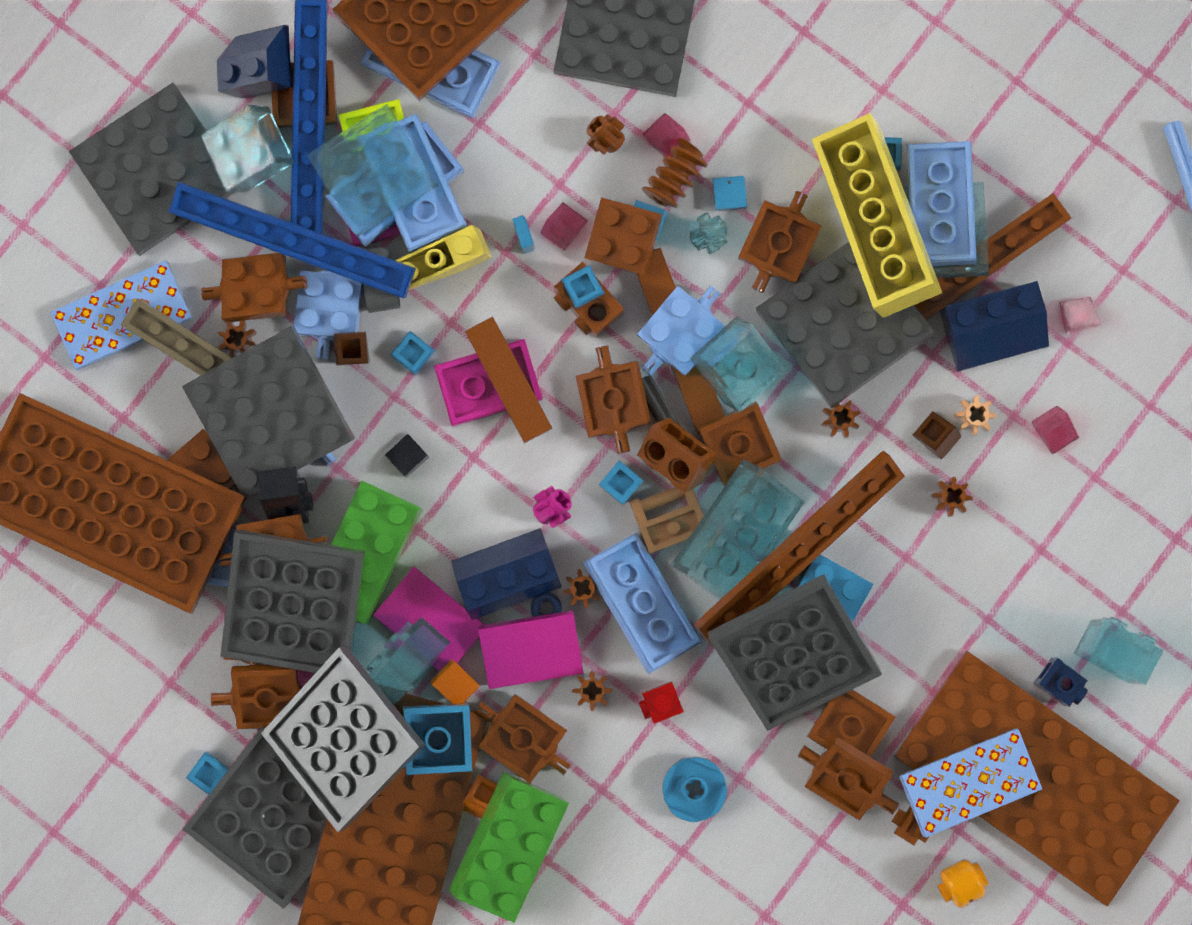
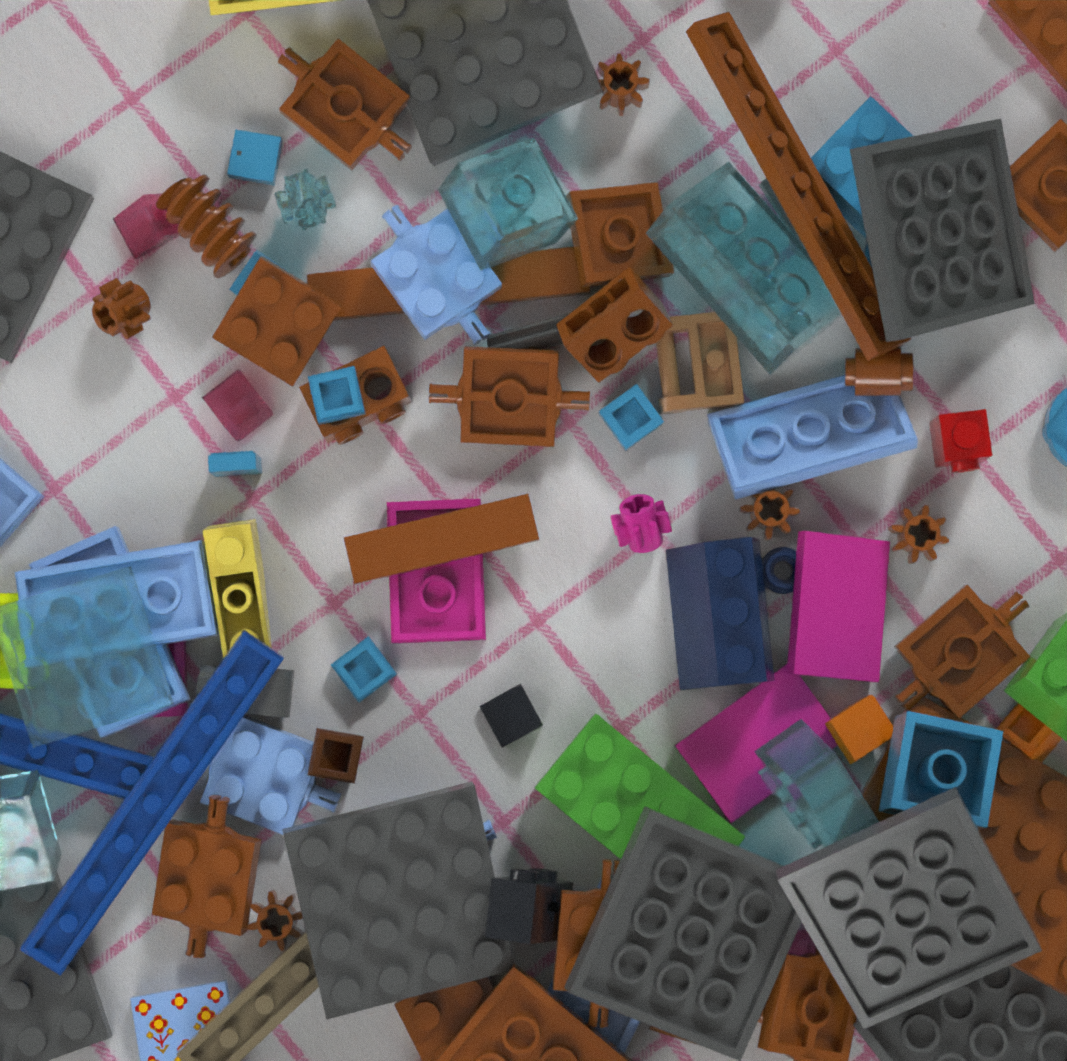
camera: 75 degrees left, 0 degrees up
(688, 638) = (880, 376): none -> dark orange brick

